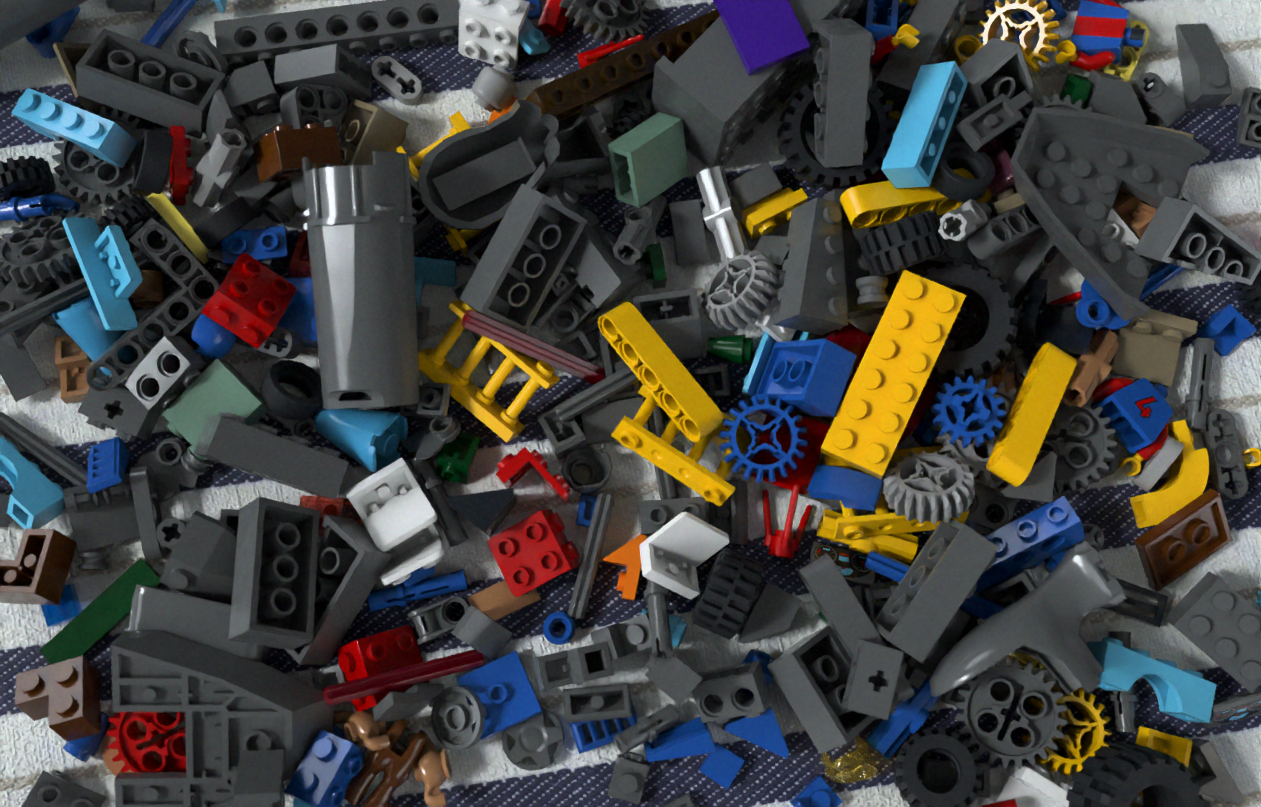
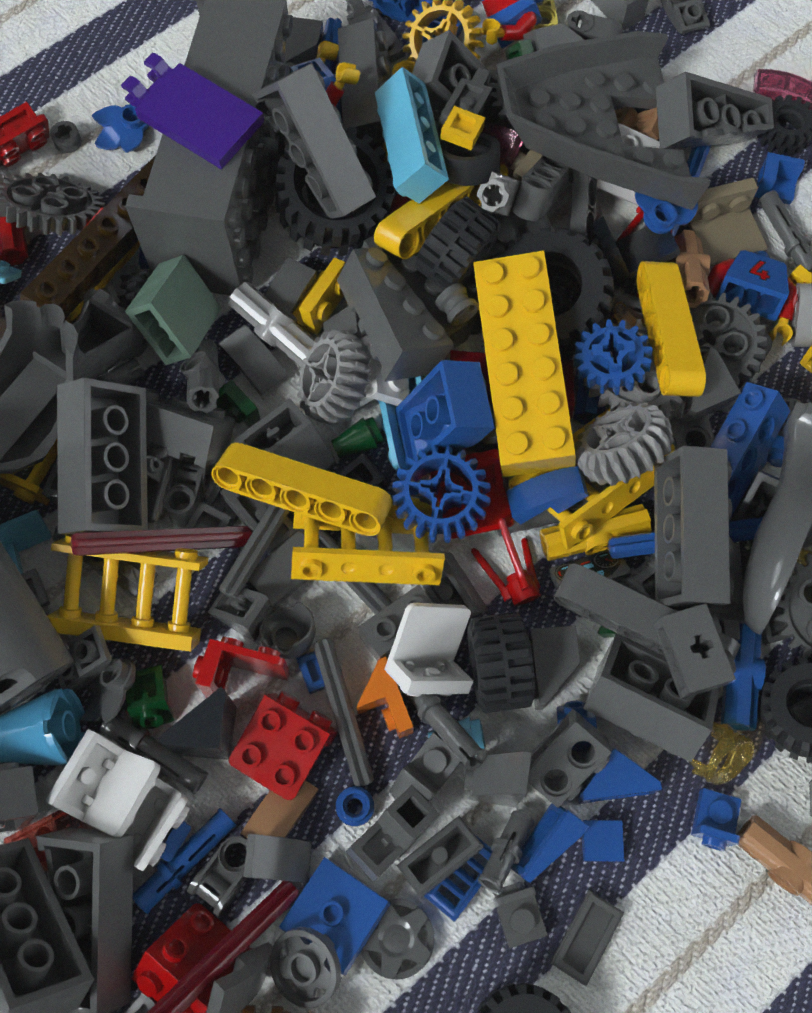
camera: 25 degrees left, 10 degrees down
(970, 146) = (462, 128): none -> yellow plate

